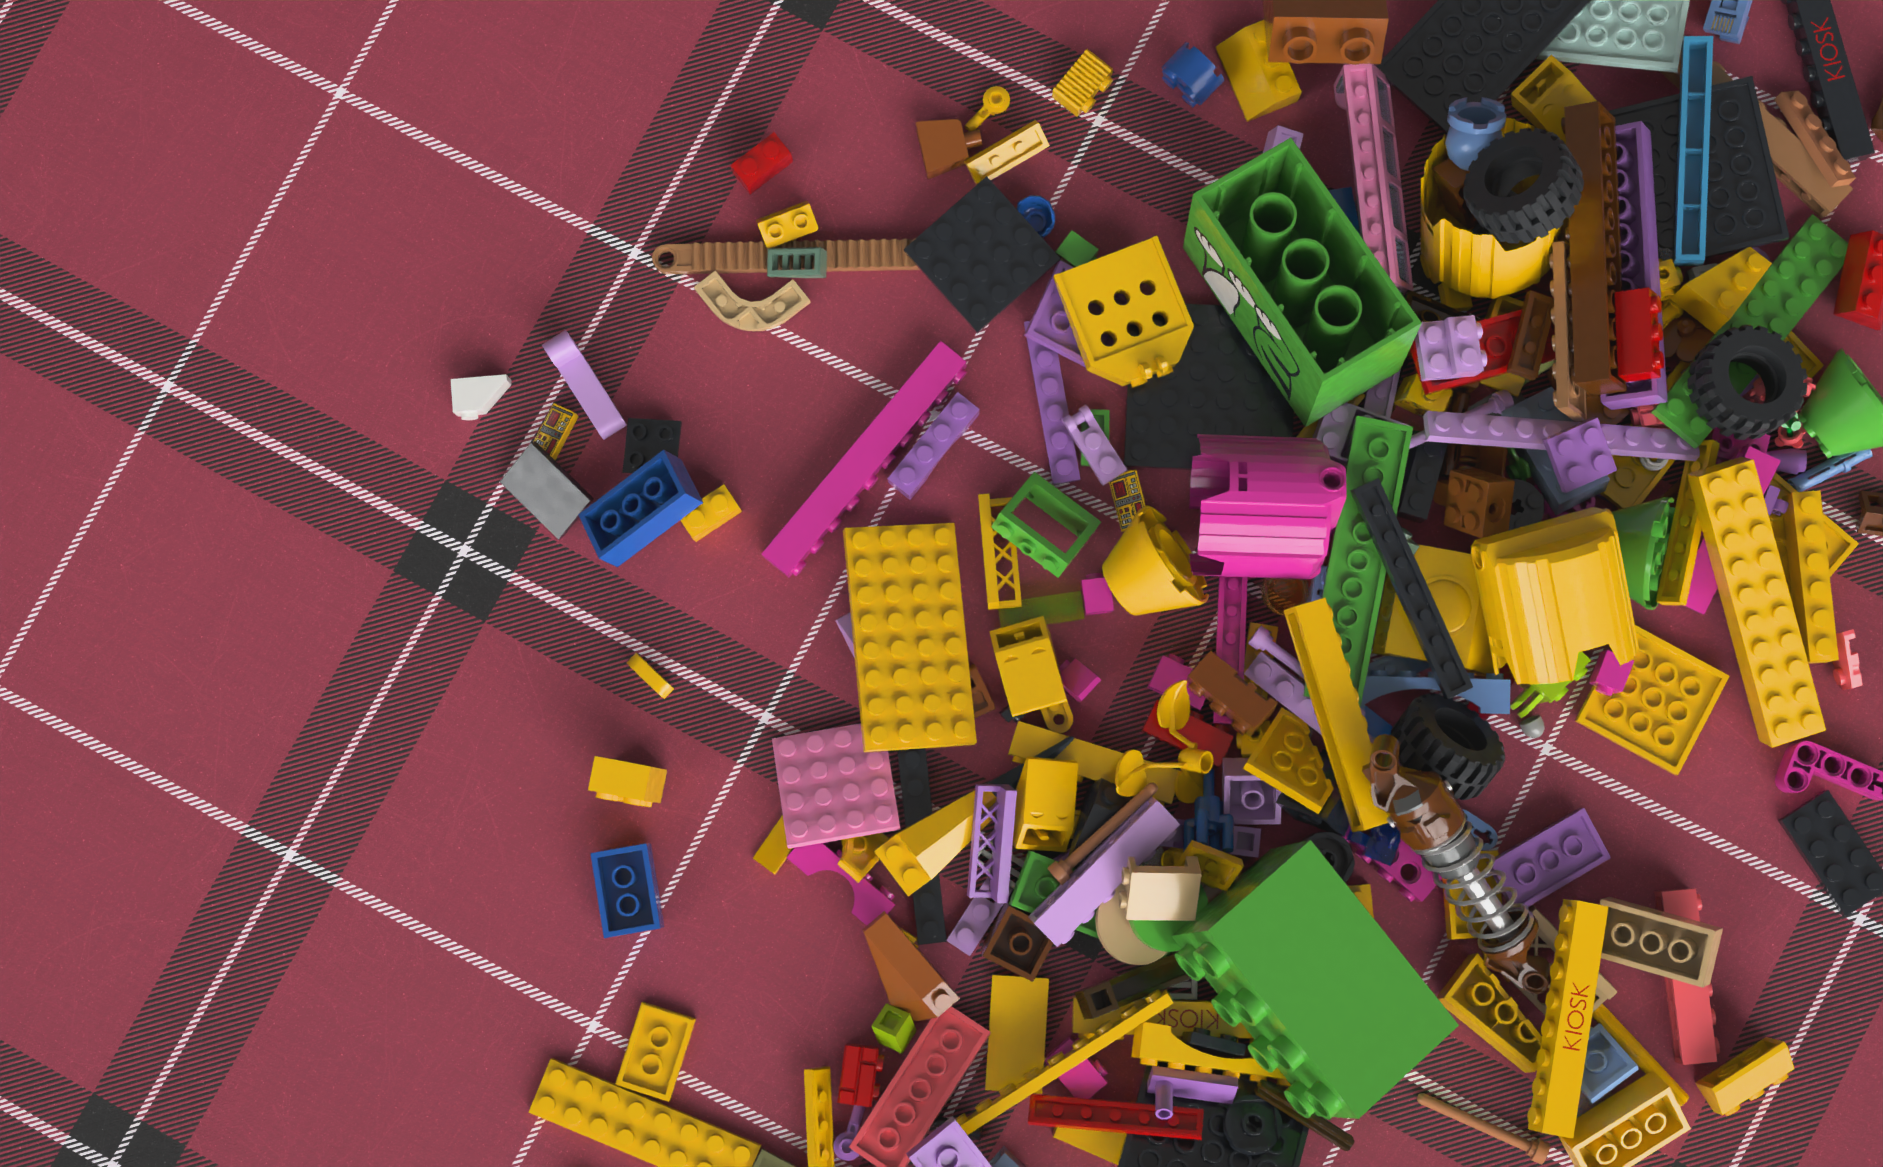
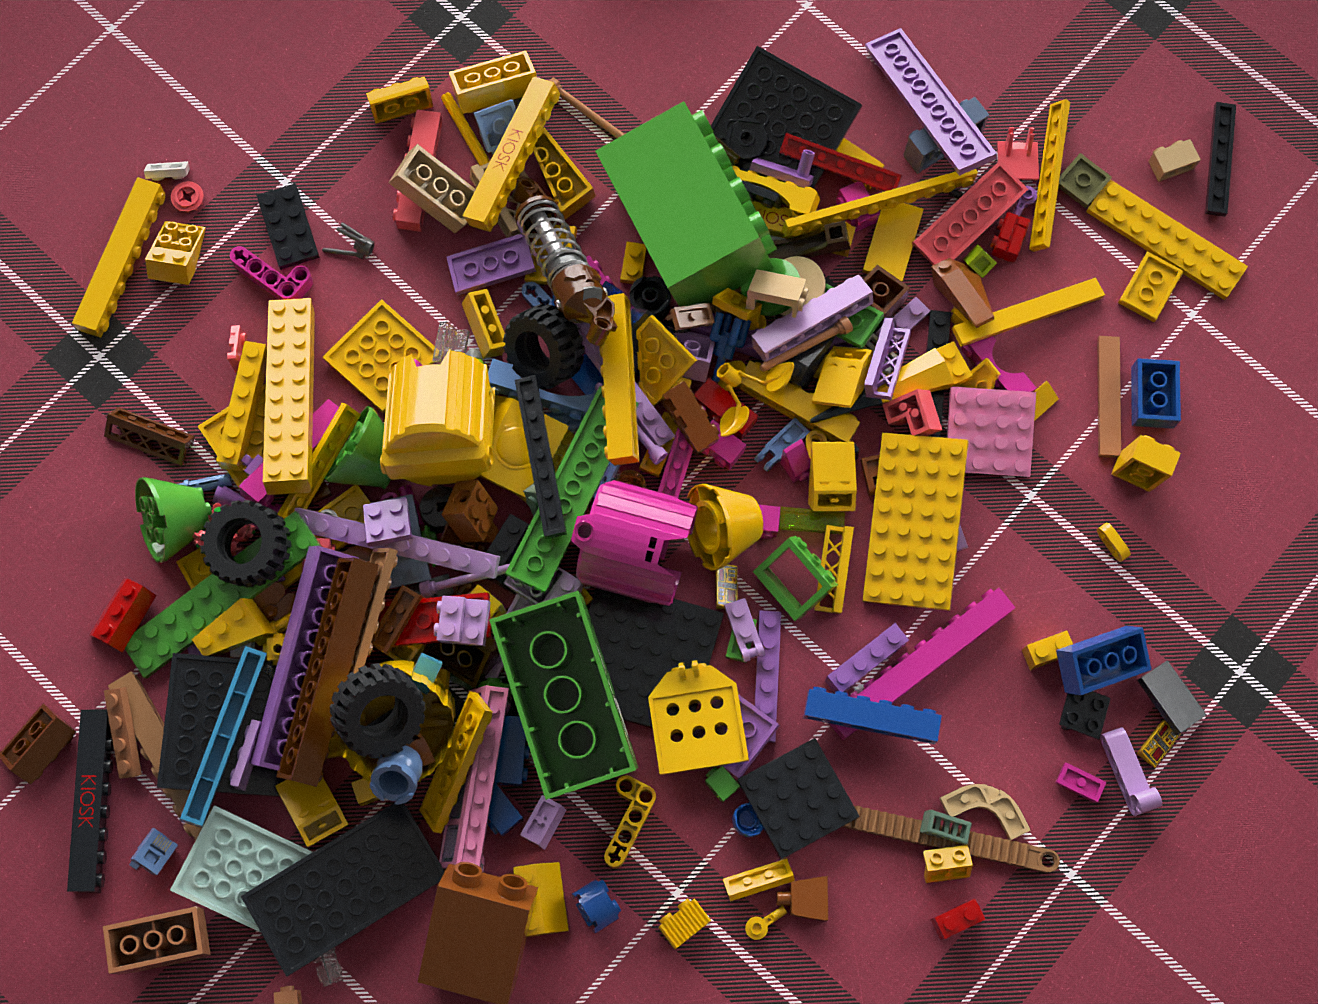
camera: 175 degrees left, 10 degrees down
(477, 394) = (1216, 785): white slope -> none
(642, 360) = (1080, 782): none -> dark pink plate
(687, 878) = (1109, 396): none -> nougat tile
(809, 969) = (1030, 311): none -> yellow tile
(914, 369) = (872, 716): none -> blue brick
(936, 782) = (916, 410): none -> coral brick
(1099, 707) = (787, 436): none -> medium blue hinge
(1175, 178) = (626, 825): none -> yellow beam
(1267, 832) = (689, 317): none -> nougat piece
(1332, 158) = (502, 813): none -> blue brick
(1403, 190) = (458, 758): none -> yellow plate
(1475, 280) = (428, 667): none -> medium azure brick
(1533, 772) = (484, 323): none -> yellow brick
(1567, 729) = (449, 338): none -> clear bracket
(1638, 334) = (317, 593): red brick -> none
(1656, 121) = (241, 773): none -> lavender plate
(1725, 847) = (362, 244): none -> dark grey plant

